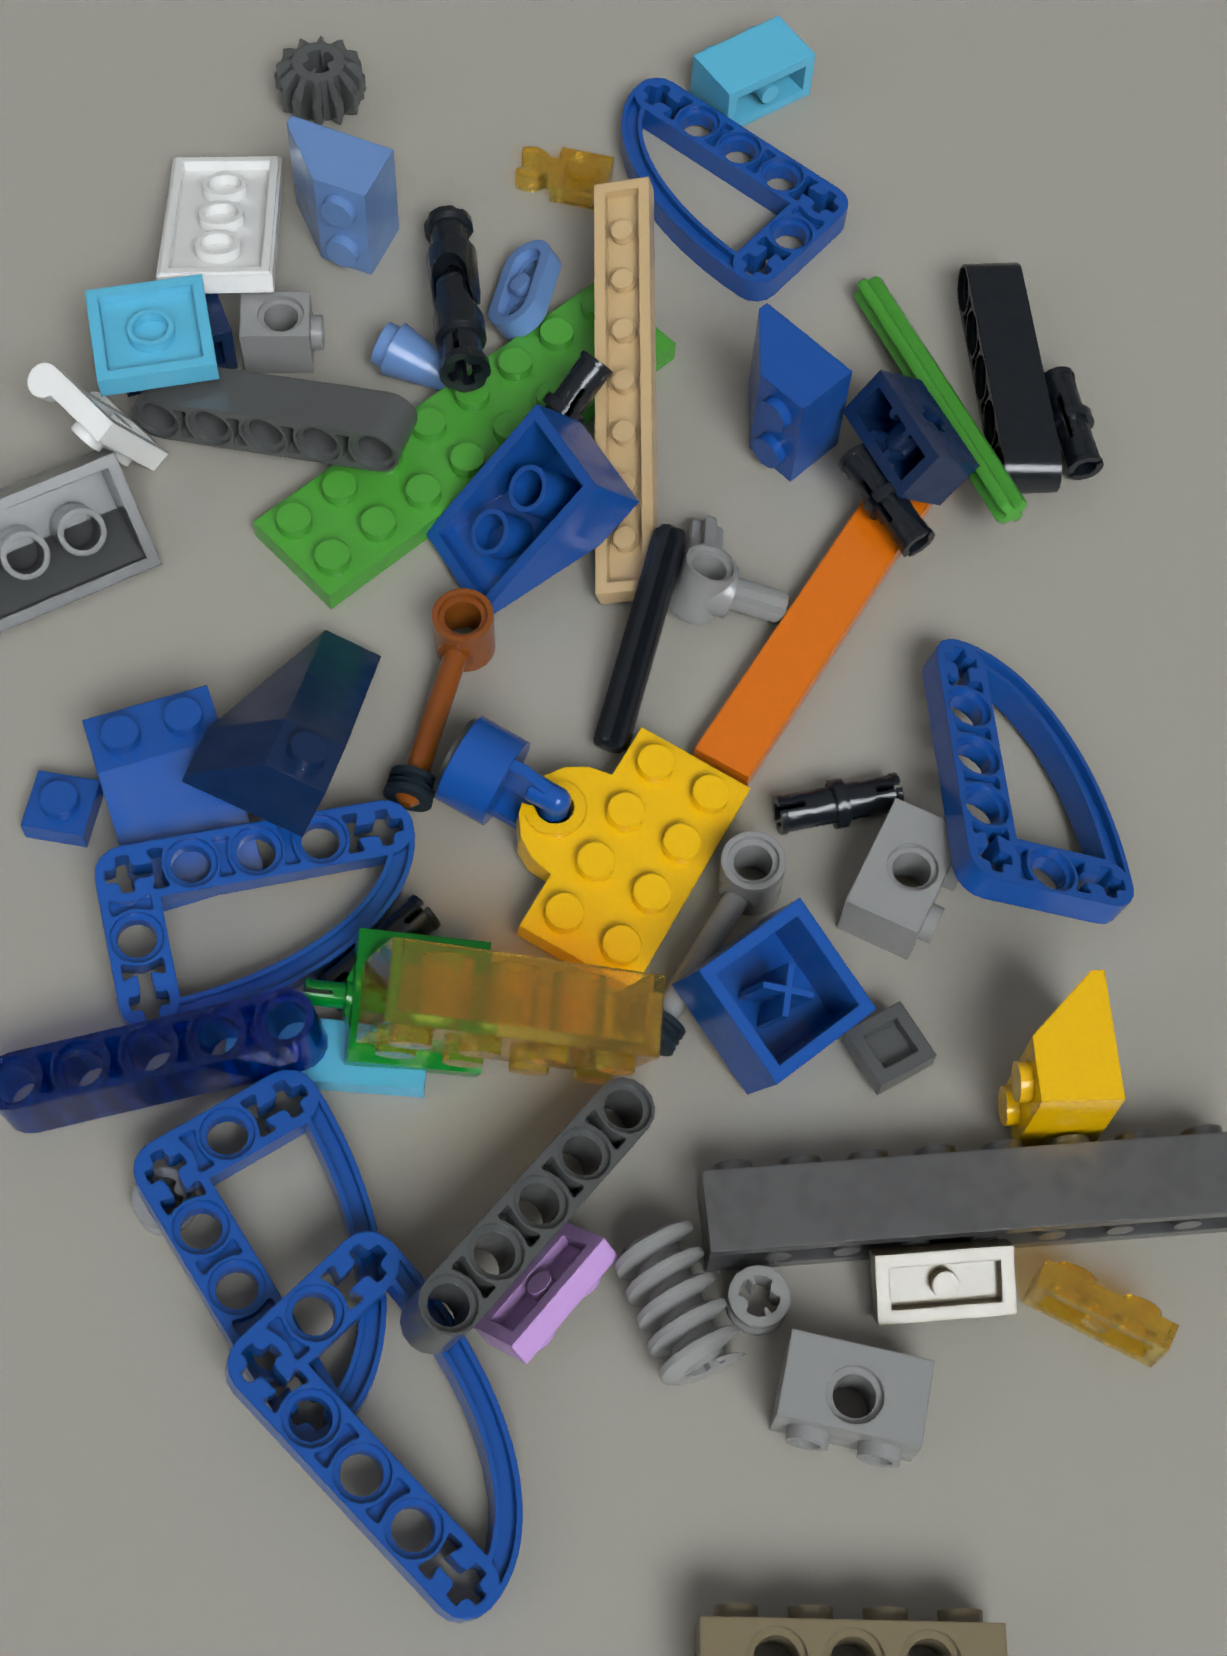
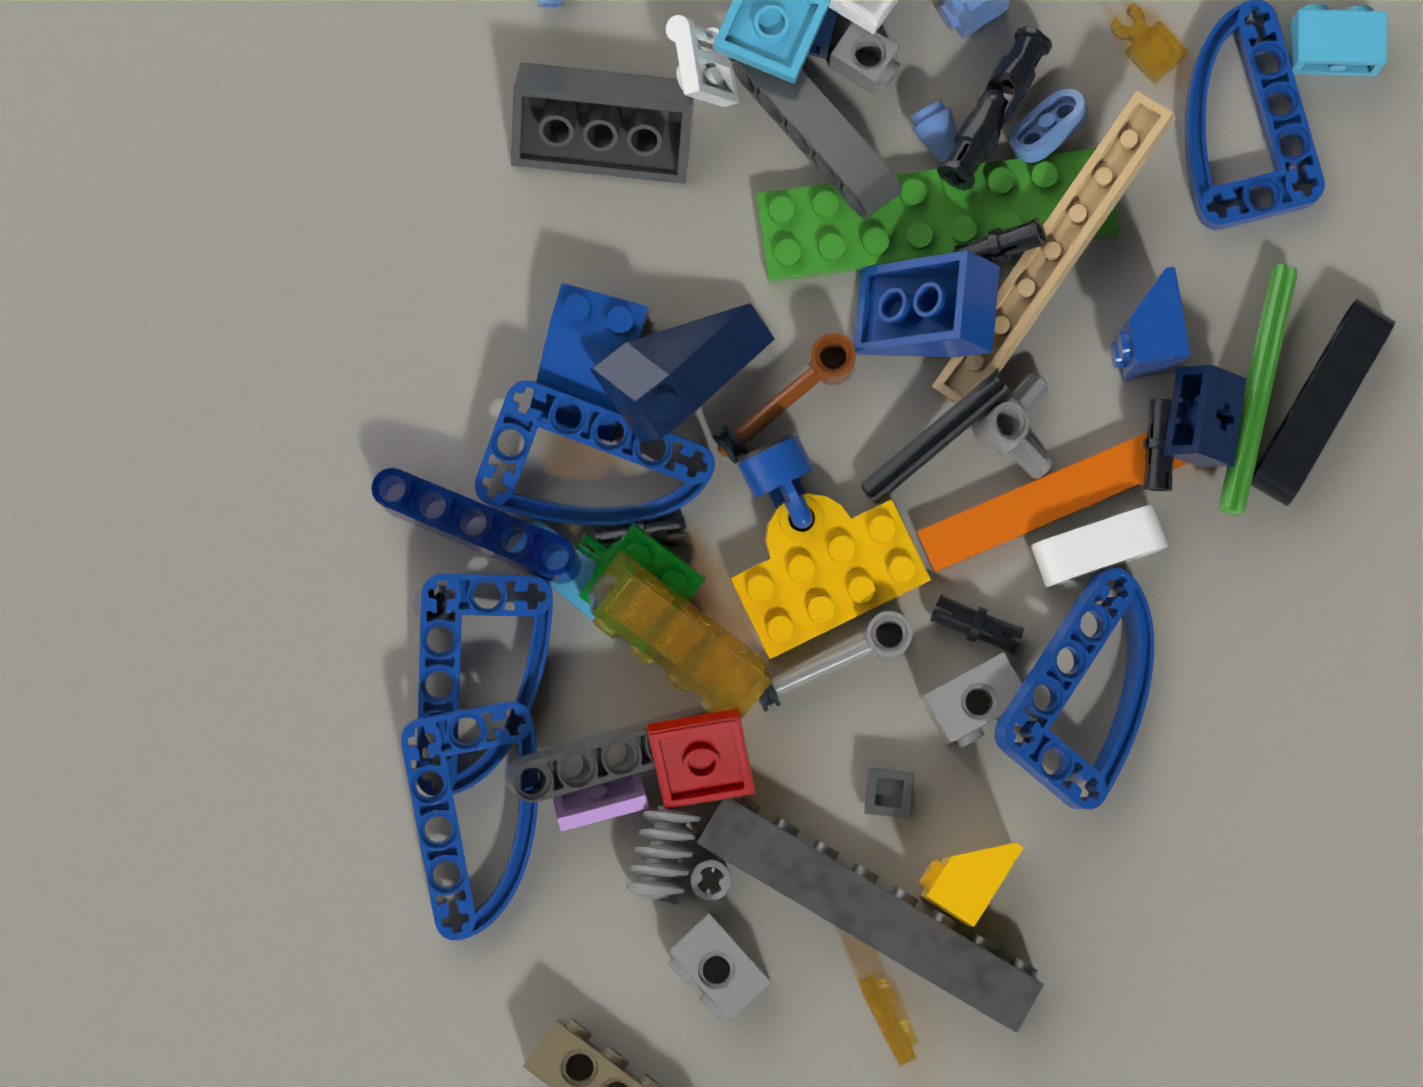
camera: 40 degrees right, 20 degrees up
(62, 808) = (523, 320): blue plate -> none
(643, 1135) = (701, 758): none -> red tile
(774, 997) = (839, 723): blue brick -> none
(901, 639) = (1099, 546): none -> white beam
(943, 1281) = (815, 942): plate -> none
(1073, 425) = (1335, 463): black pin -> none

